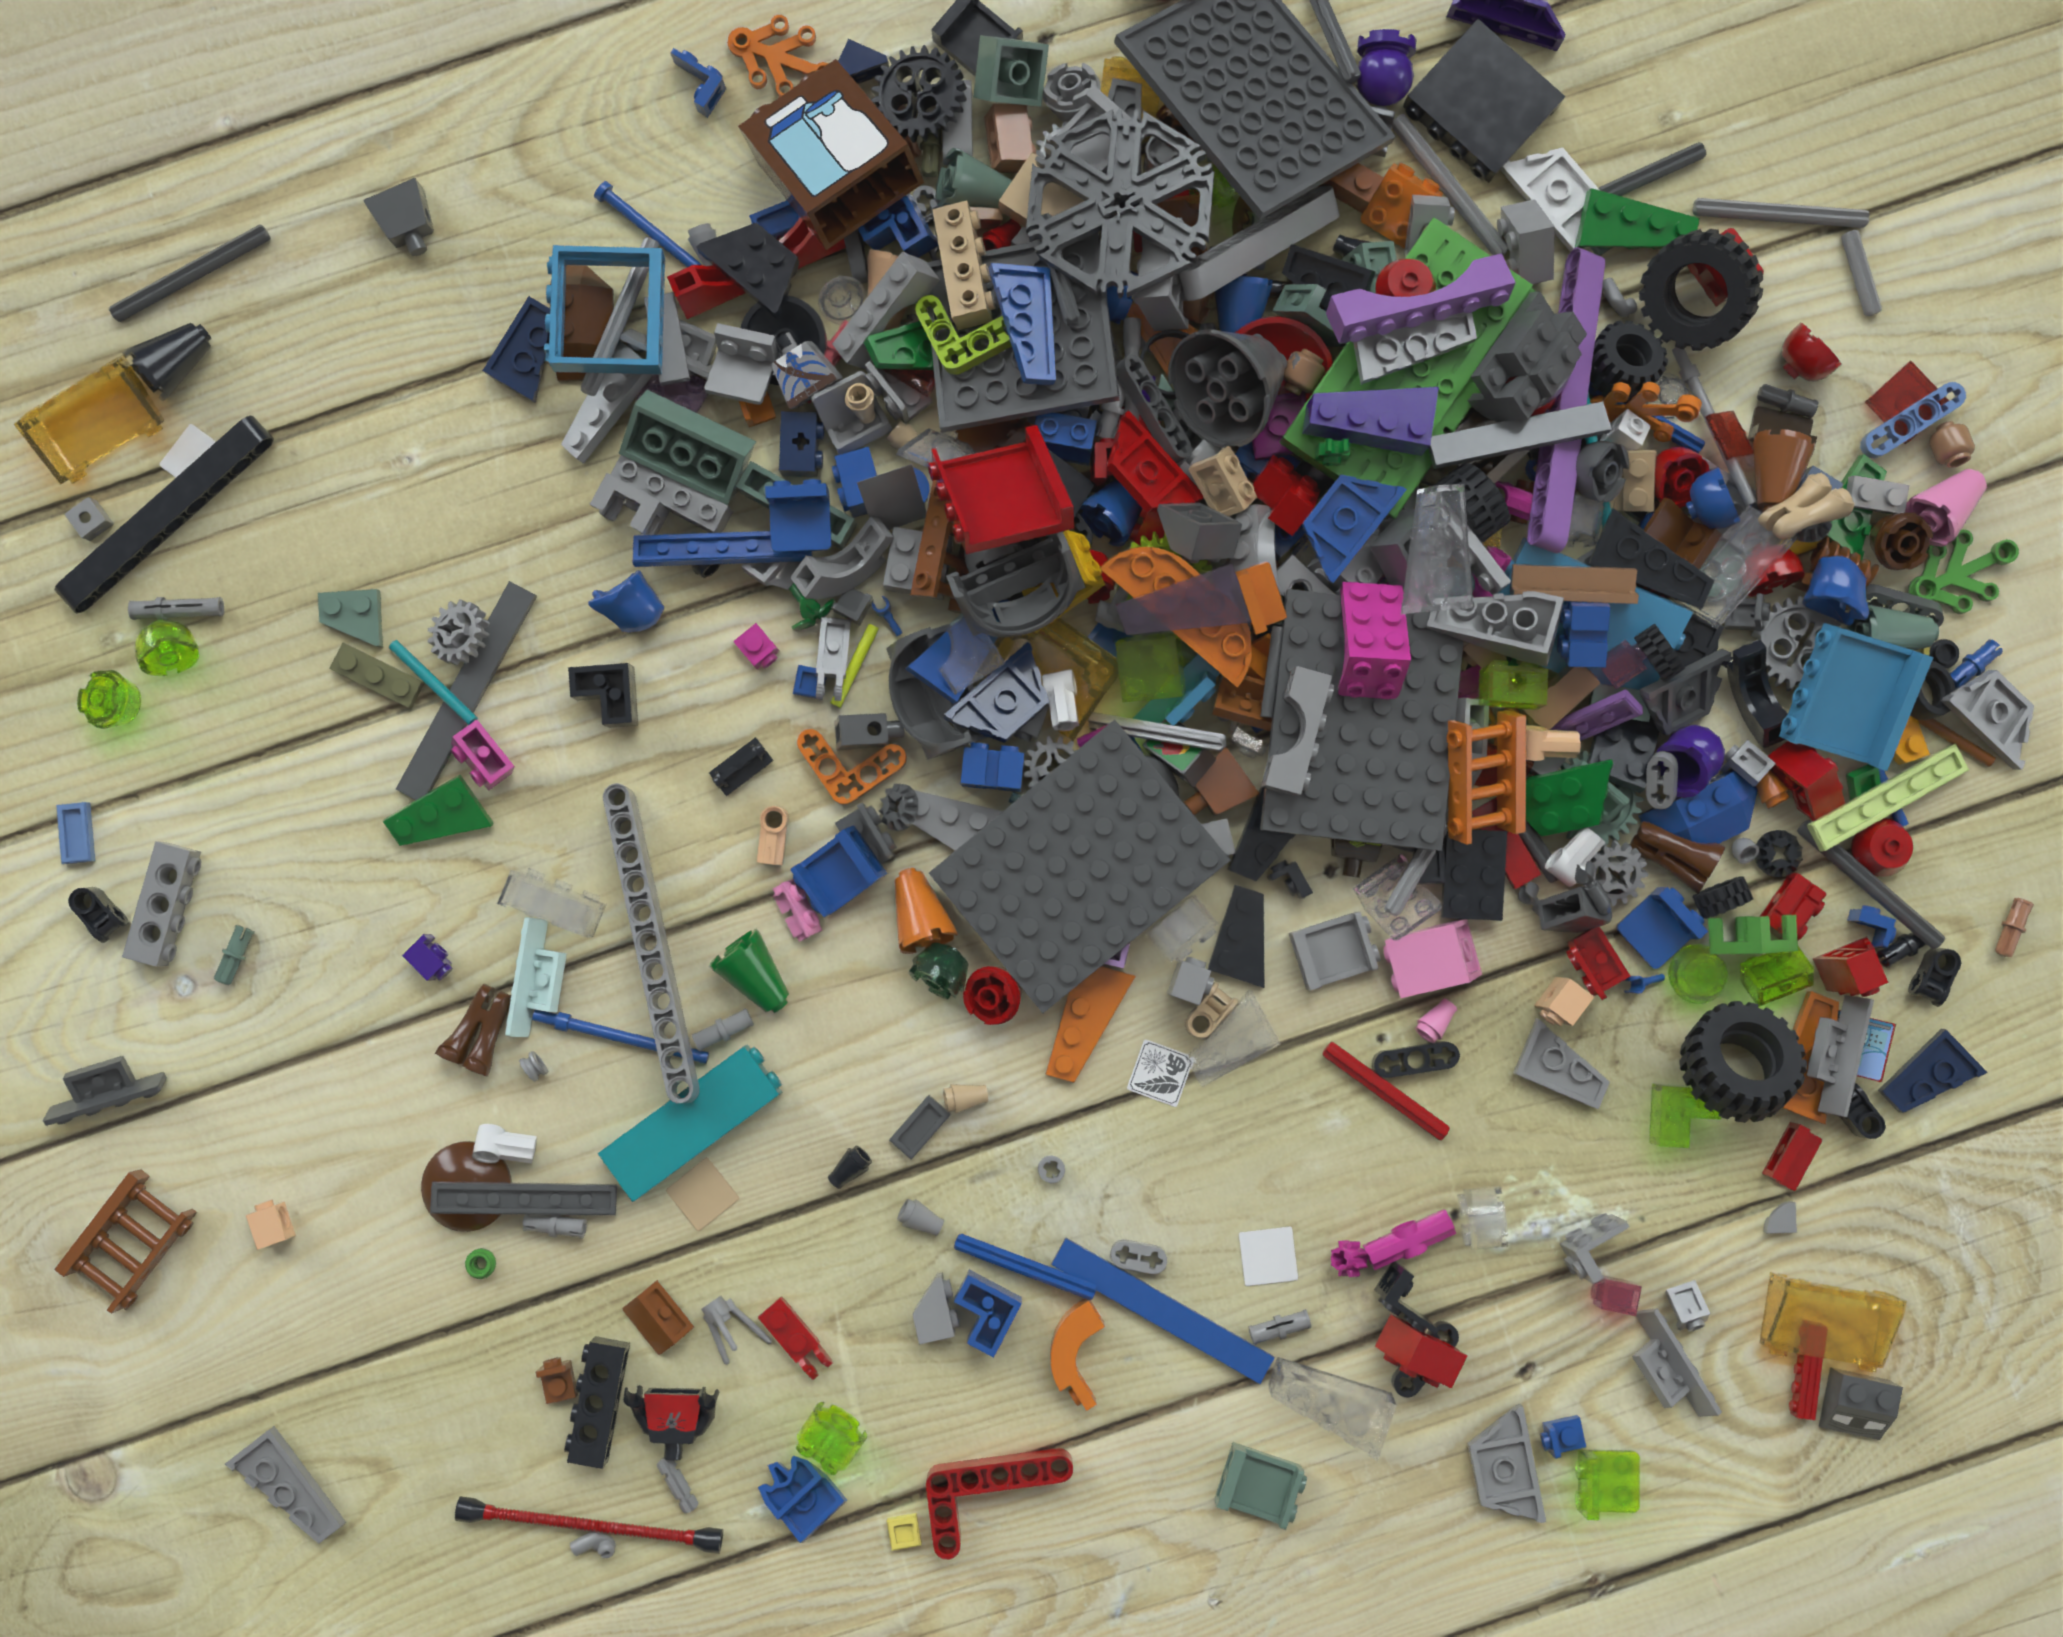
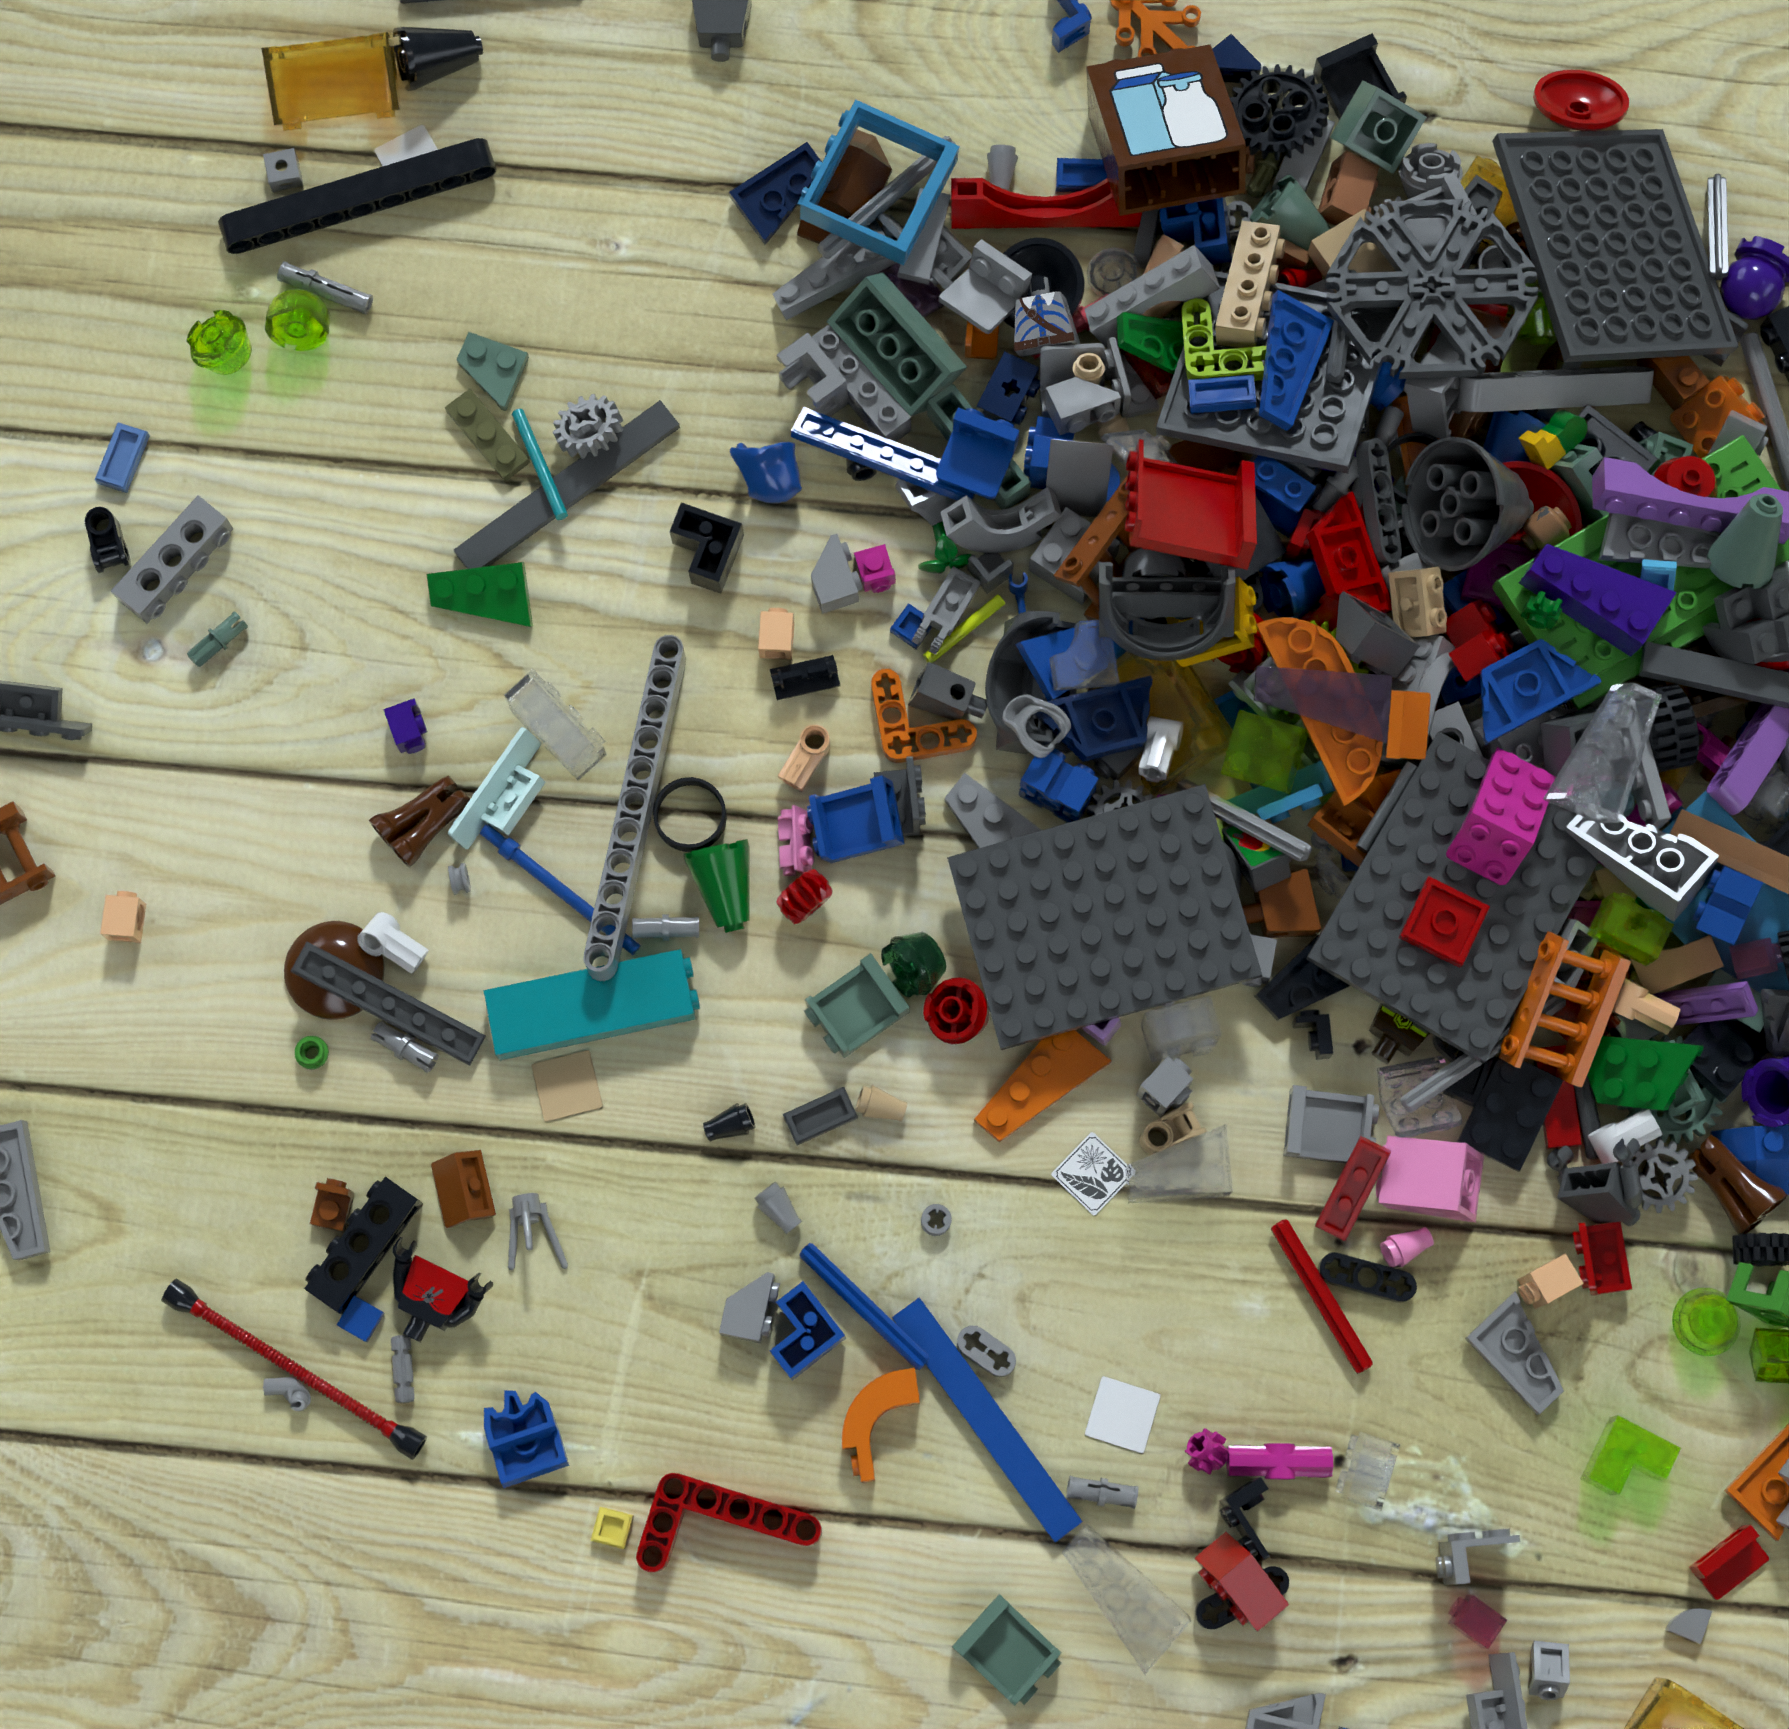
camera: 30 degrees right, 10 degrees down
(482, 755) = (555, 552): dark pink brick -> none
(605, 193) = (925, 79): blue bar -> none
(624, 1459) = (360, 1318): none -> blue tile
(669, 918) = (689, 781): none -> black tyre
(700, 741) = (776, 634): none -> light nougat brick
(725, 672) = (833, 579): none -> light grey slope
(754, 264) = (1042, 201): black wing -> none
(794, 1335) = (592, 1269): red hinge -> none
(825, 955) = (804, 896): none -> red gear
(830, 1438) = (583, 1388): clear neon green brick -> none
(865, 431) = (1080, 403): none -> light grey slope
(907, 808) = (954, 787): dark grey gear -> none
(908, 1026) = (856, 1007): none -> sand green panel
(919, 913) = (919, 898): orange cone -> none
(934, 728) = (1021, 709): none -> light grey piece
(983, 374) = (1222, 393): none -> blue tile
(1241, 938) = (1237, 1073): black wing -> none
(1277, 287) = (1554, 439): none -> leg
(1307, 694) = (1411, 839): light grey arch -> none
(1361, 751) = (1444, 922): none -> red tile
(1375, 995) = (1352, 1188): none -> red tile
(1416, 375) = (1659, 572): none -> medium azure tile
(1483, 321) = (1749, 544): none -> sand green cone
(1638, 983) = (1638, 1304): blue hand -> none
(1661, 926) = (1686, 1253): blue bracket -> none
(1668, 780) = (1755, 1099): light grey beam -> none
(1765, 1038) = (1690, 1449): black tyre -> none

